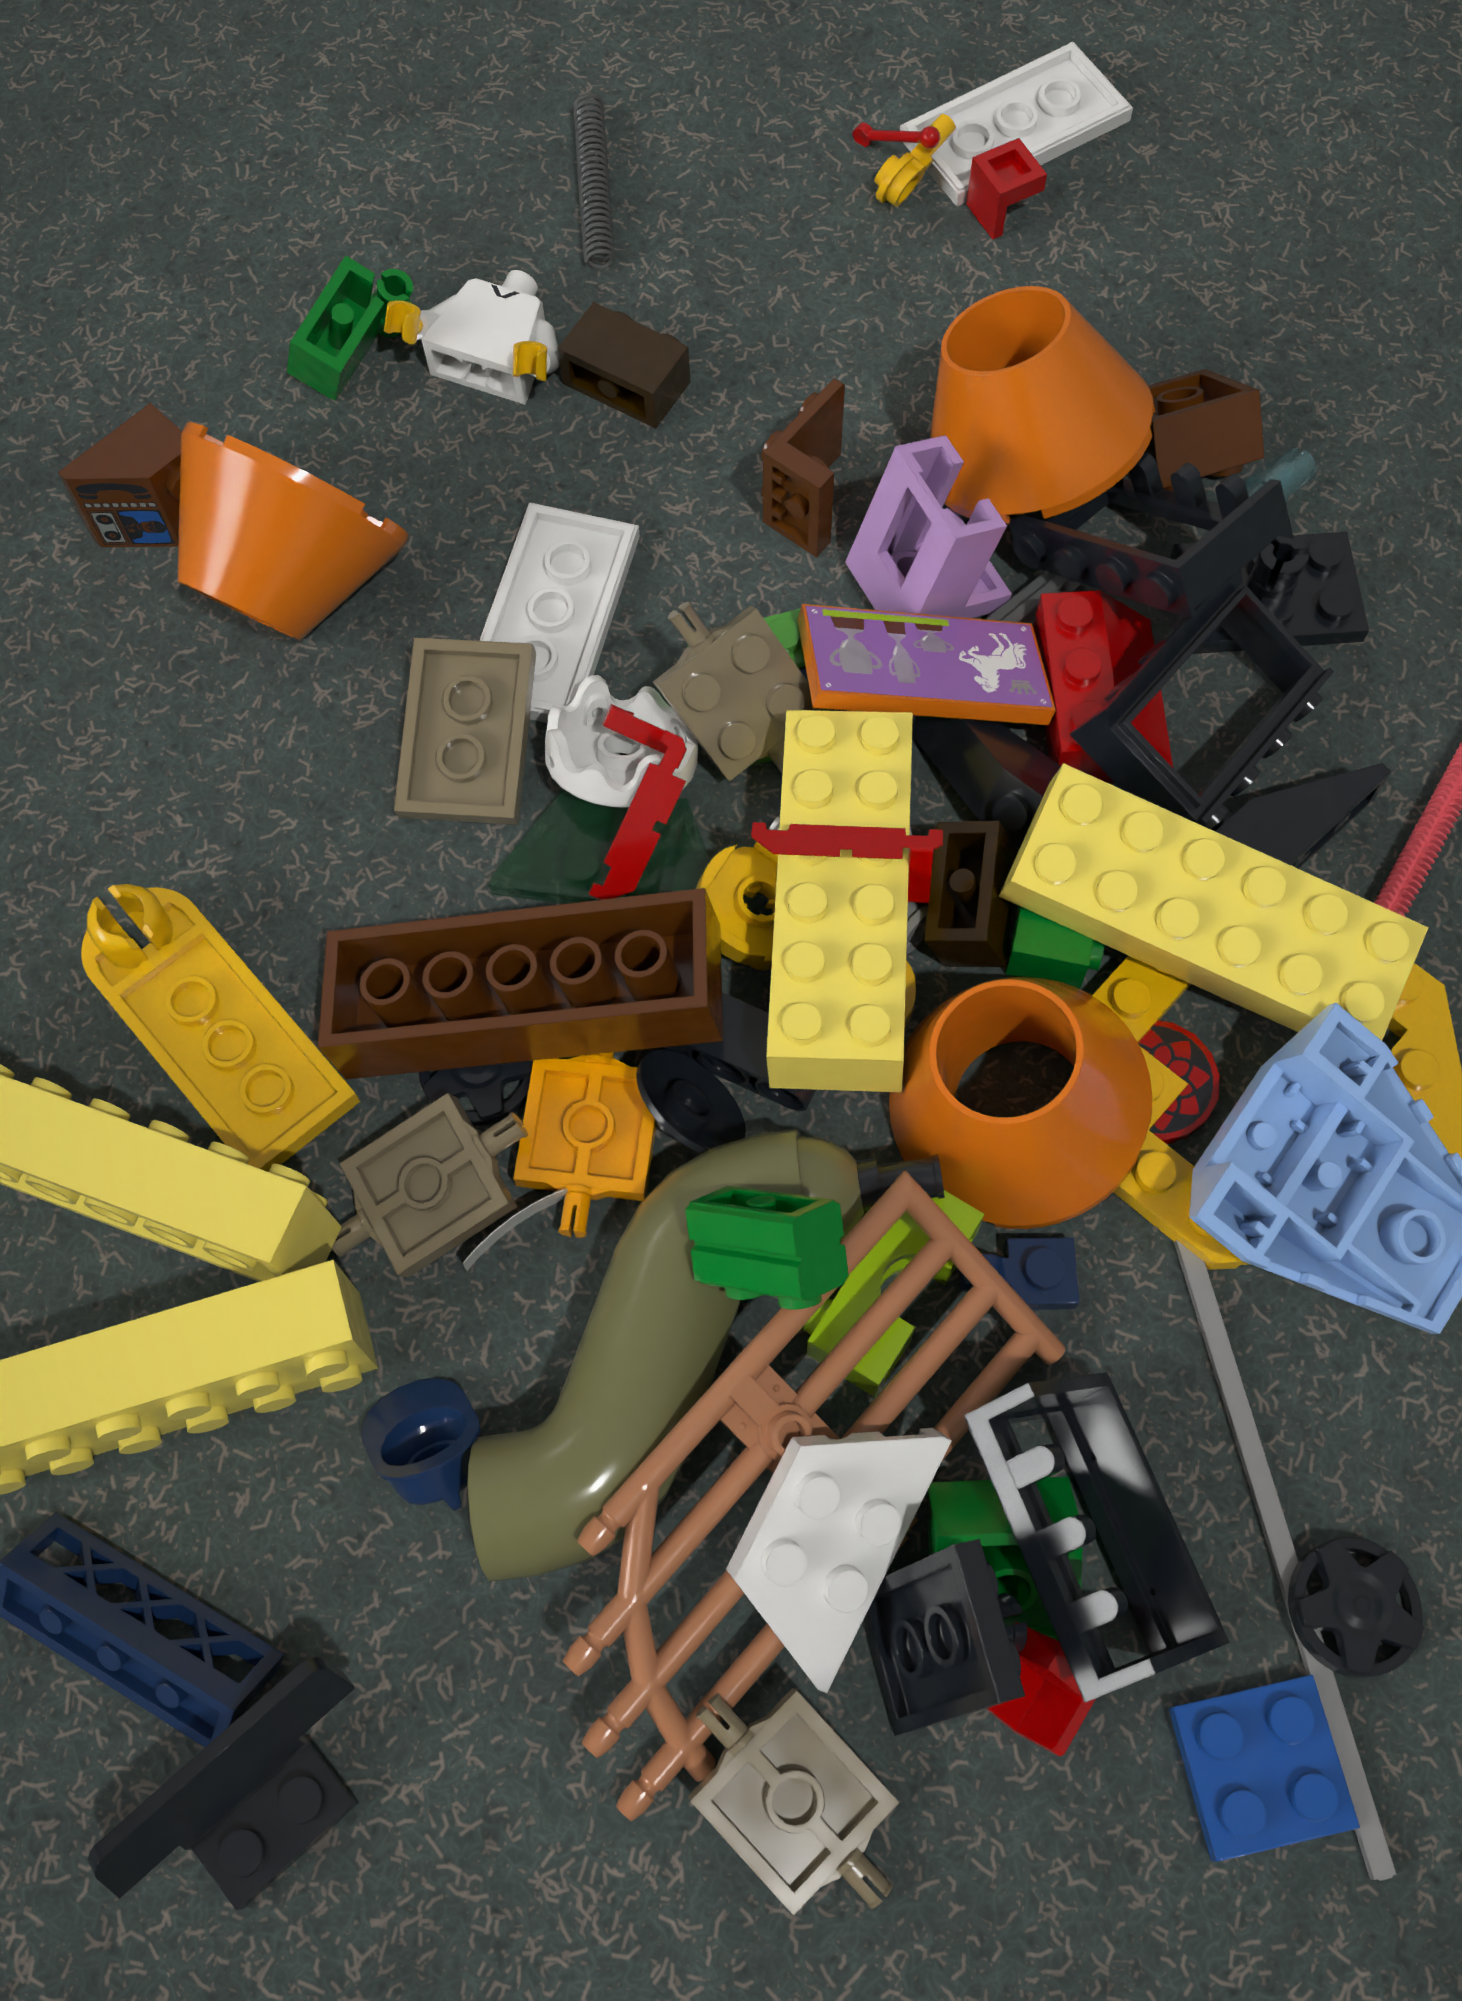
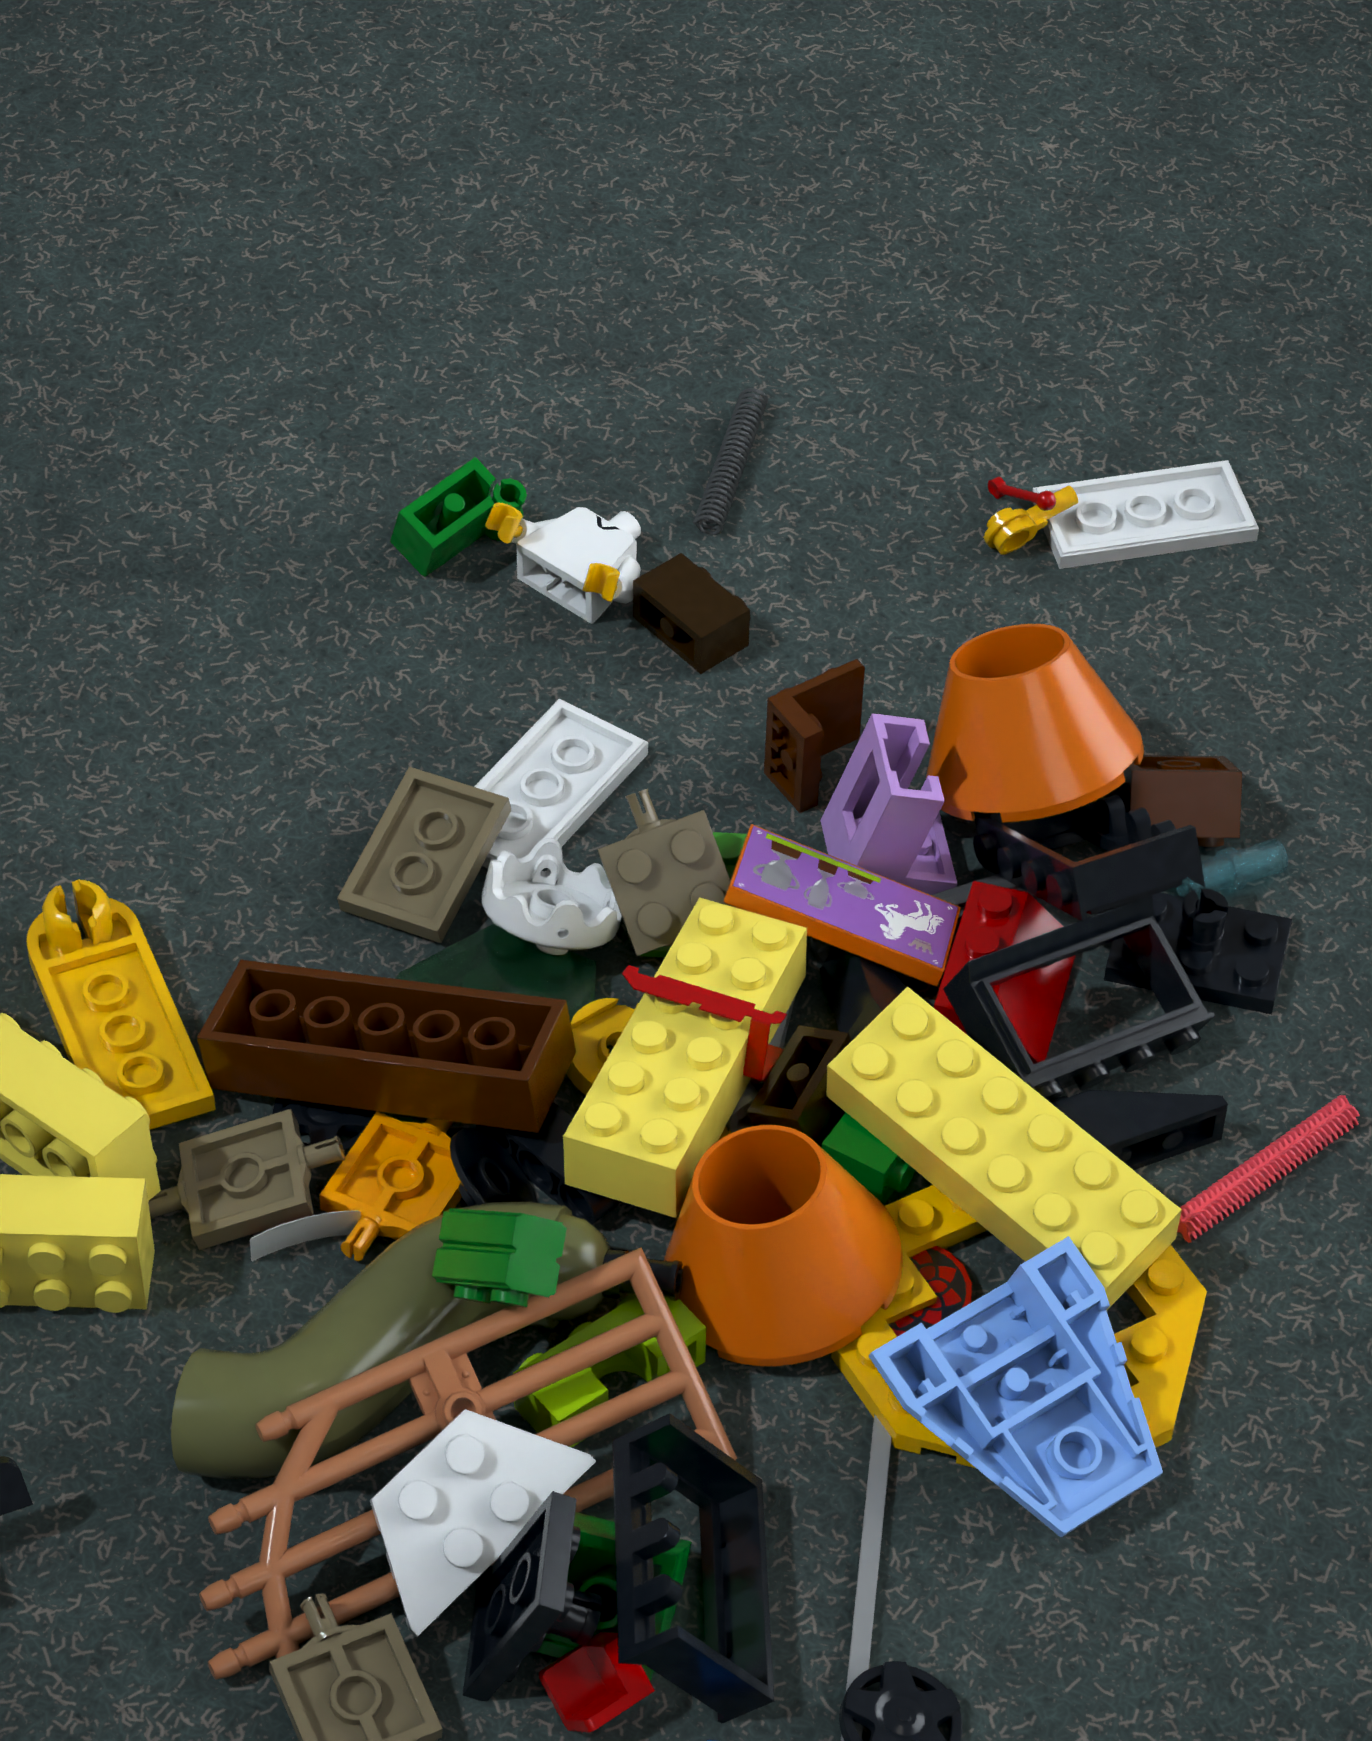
camera: 15 degrees right, 20 degrees down
(130, 483) = (227, 592): reddish brown slope -> none
(272, 534) = (321, 653): orange cone -> none
(422, 1440) = (155, 1359): dark blue piece -> none
(651, 803) = (557, 938): red piece -> none
(1000, 180) = (1100, 551): red panel -> none
(1038, 1270) = (741, 1400): dark blue plate -> none

